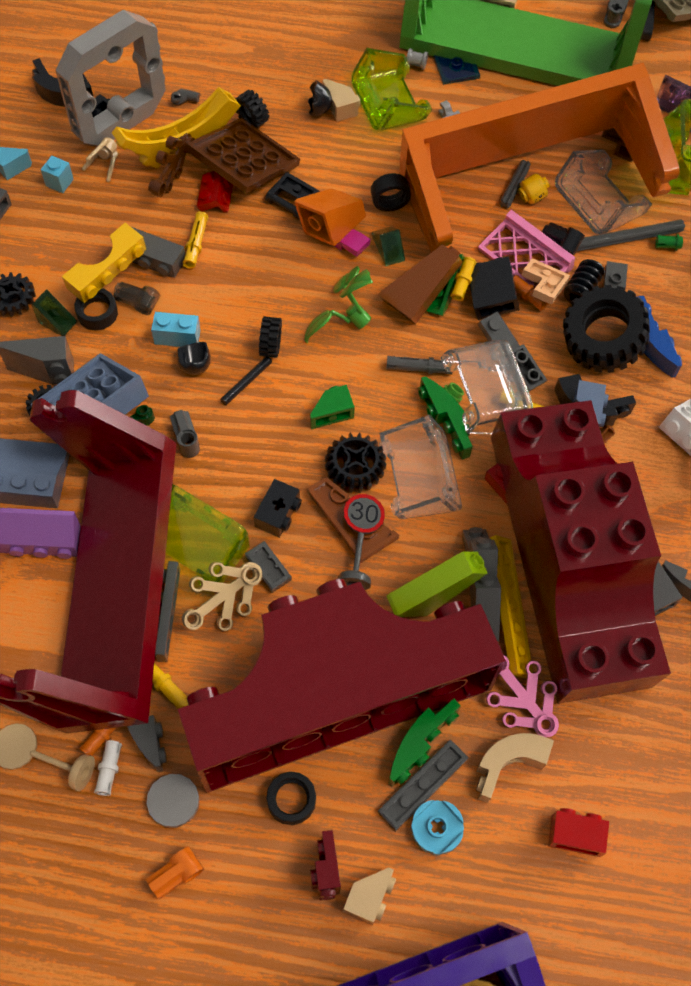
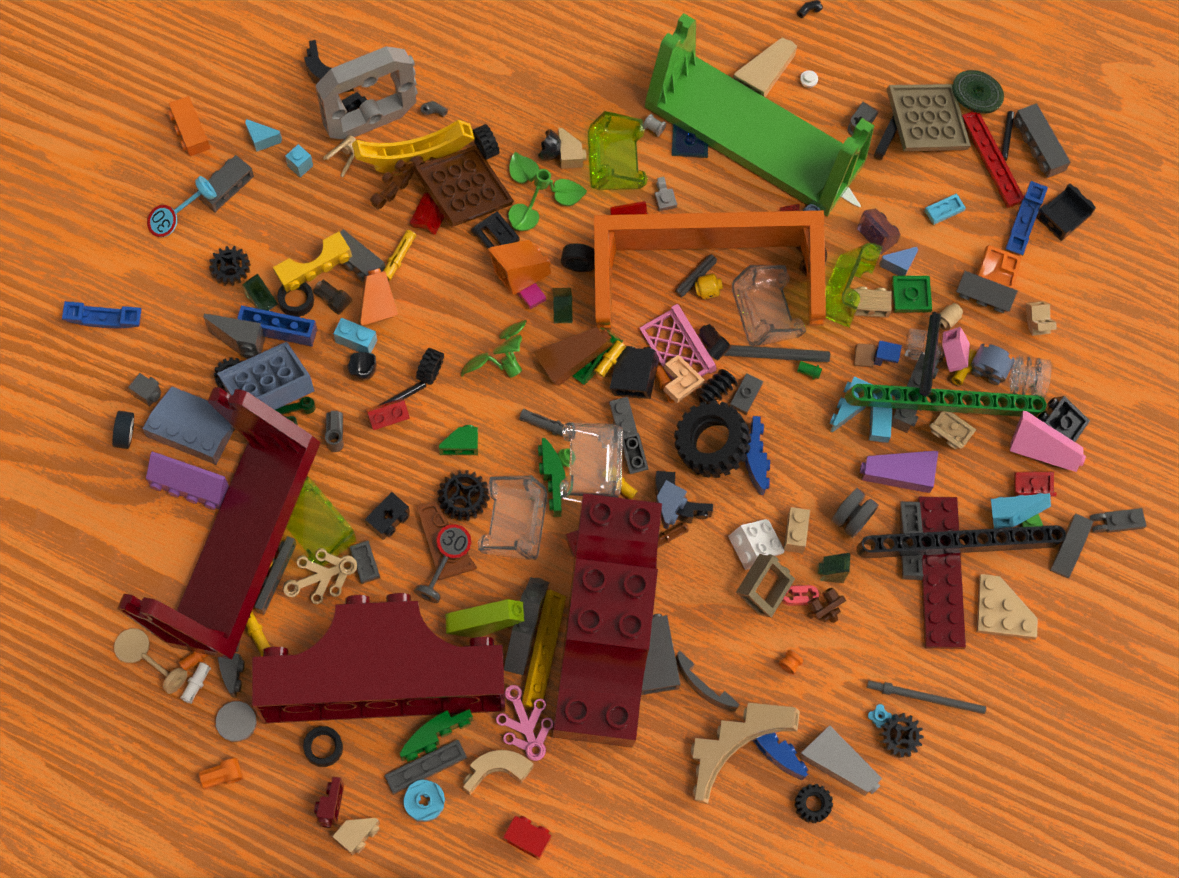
camera: 15 degrees right, 5 degrees up
(91, 338) = (281, 326): none -> blue brick
(189, 280) = (377, 298): none -> orange slope
(240, 398) = (387, 414): none -> red brick
(299, 130) = (524, 169): none -> bright green plant

